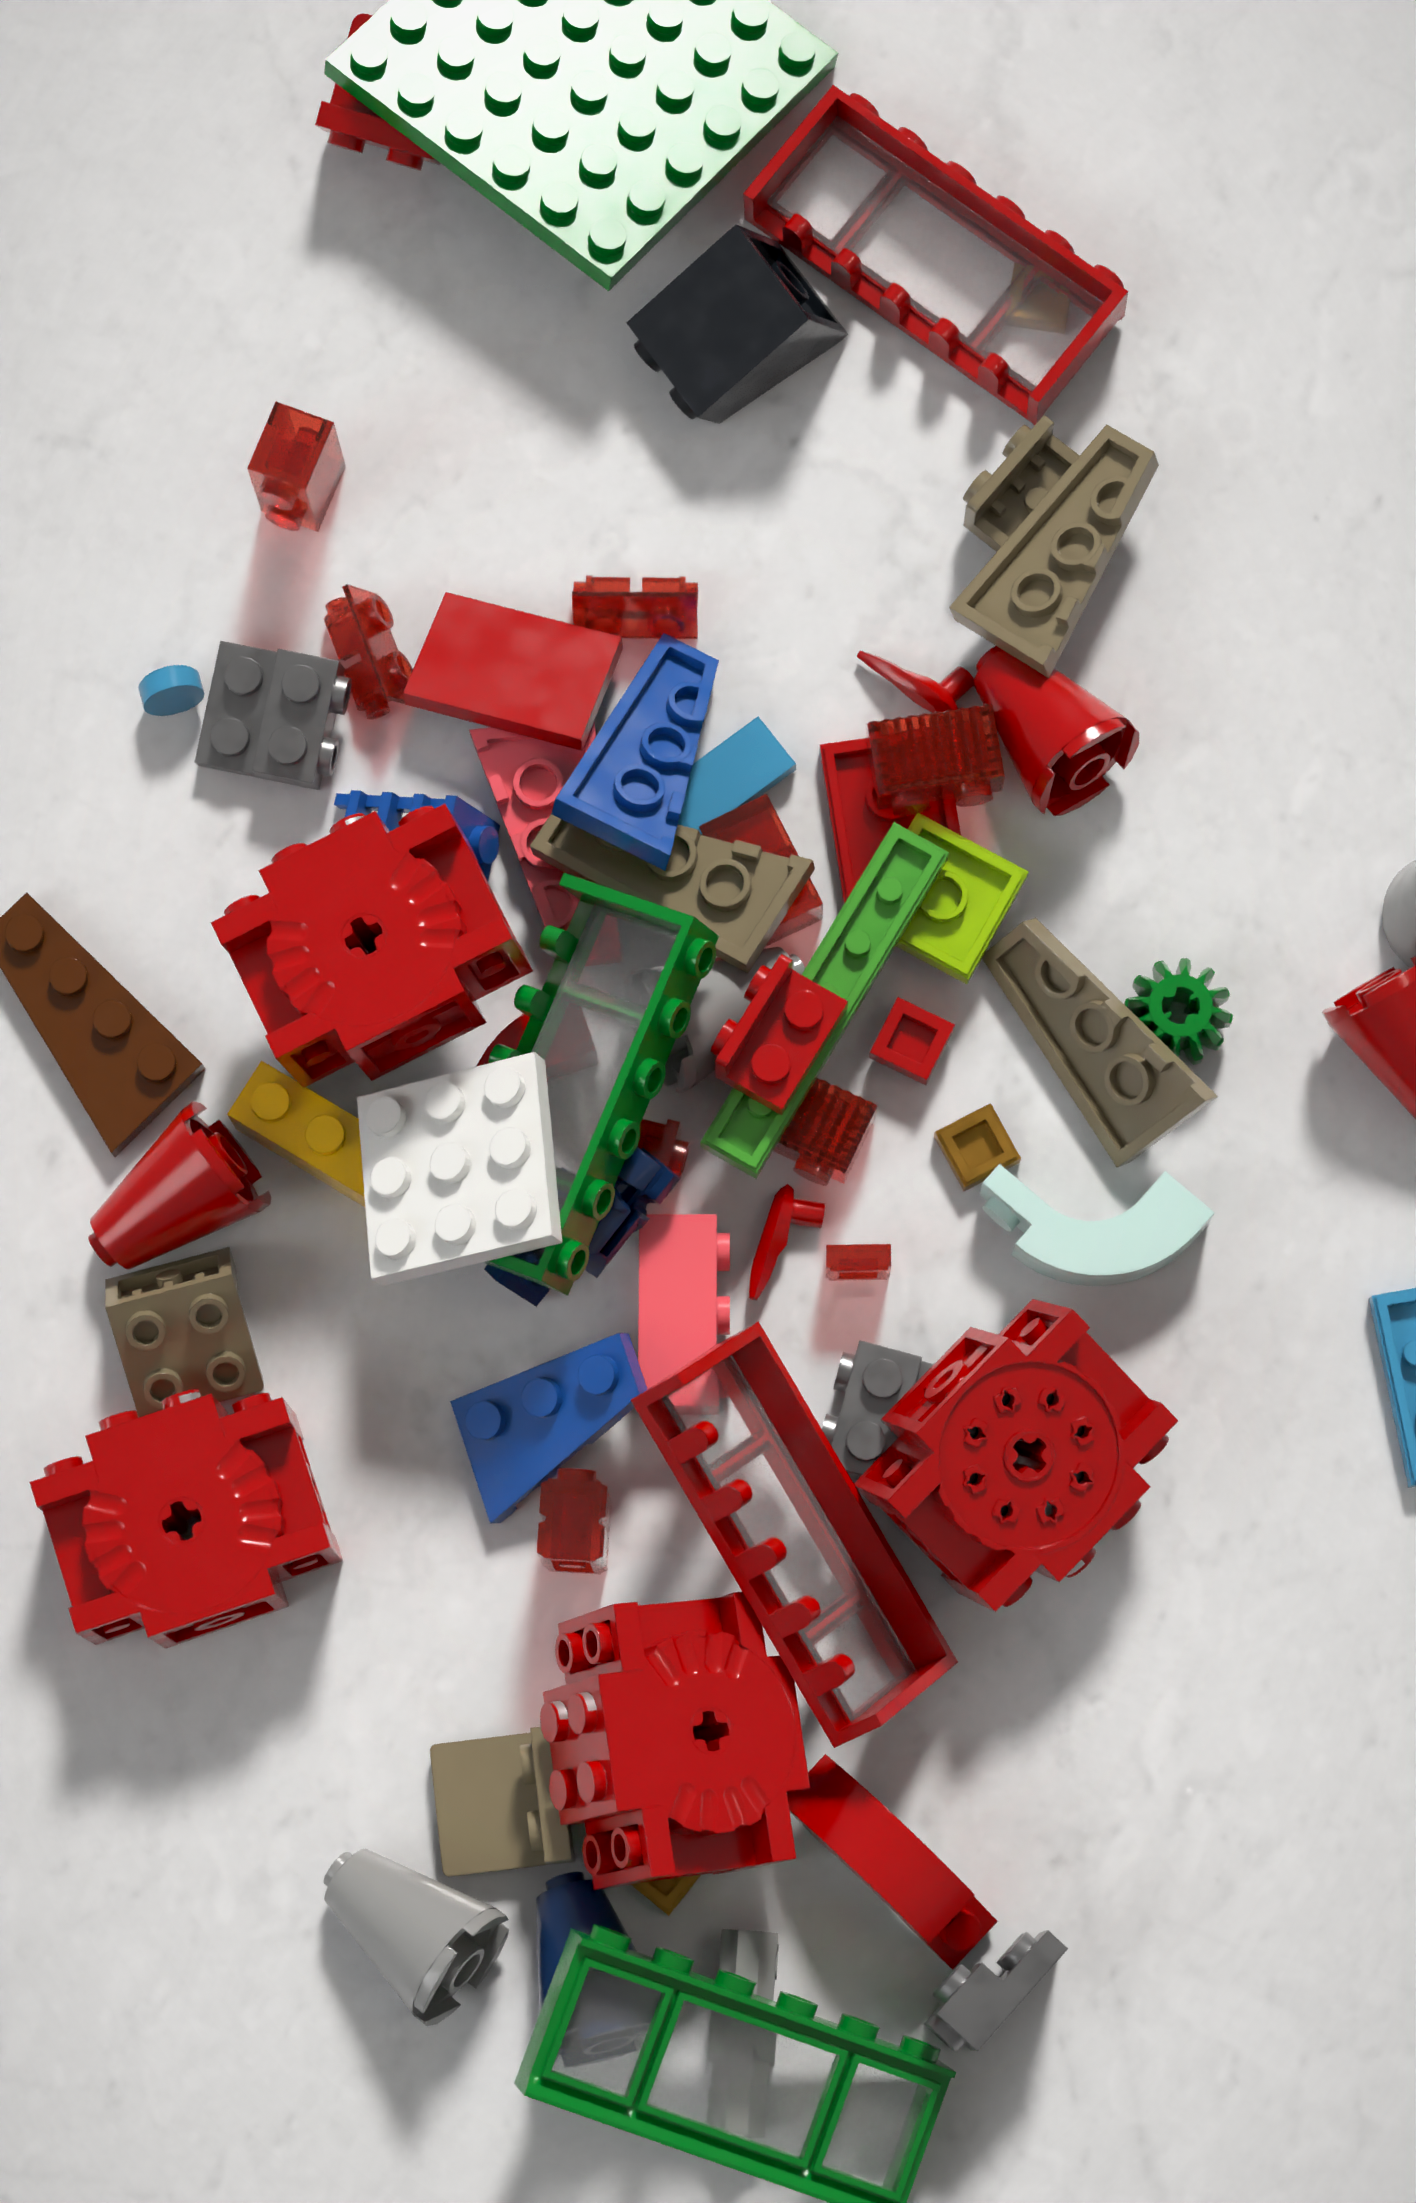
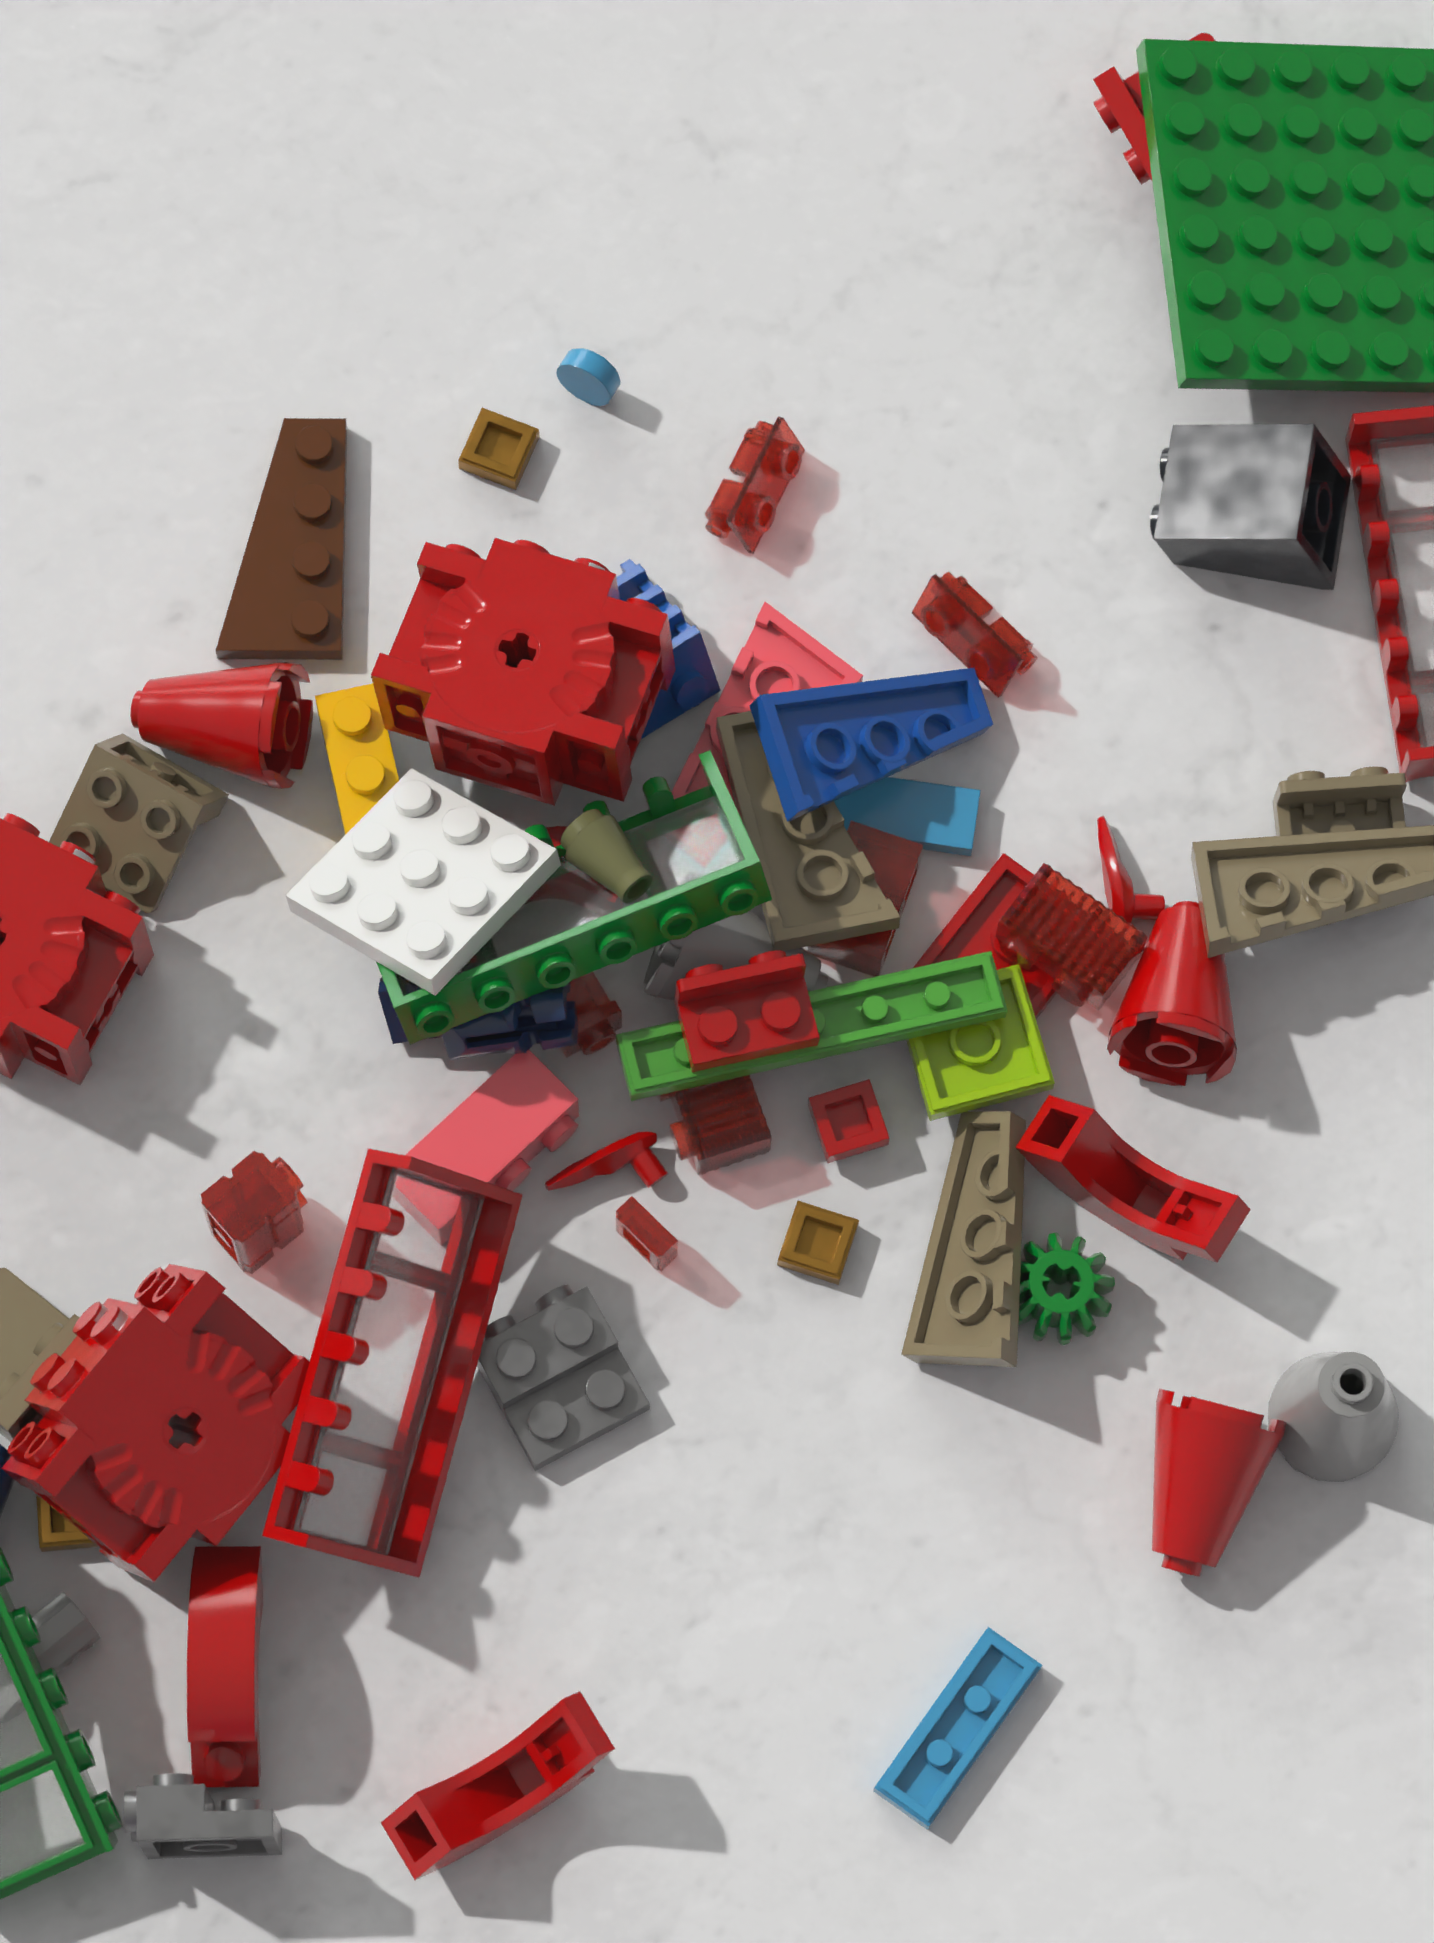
camera: 40 degrees right, 5 degrees down
(158, 806) = (498, 448): none -> pearl gold tile
(273, 715) = (641, 461): flat silver plate -> none
(296, 468) = (831, 304): clear red brick -> none
(513, 671) = (839, 591): red tile -> none
(543, 1417) = (312, 1119): blue wing -> none
(571, 1021) = (604, 853): none -> olive cone
(1017, 1455) = (542, 1481): red piece -> none
(1101, 1250) = (843, 1413): light aqua arch -> none
(1157, 895) = (1125, 1188): none -> red arch
(1169, 1750) = (500, 1790): none -> red arch

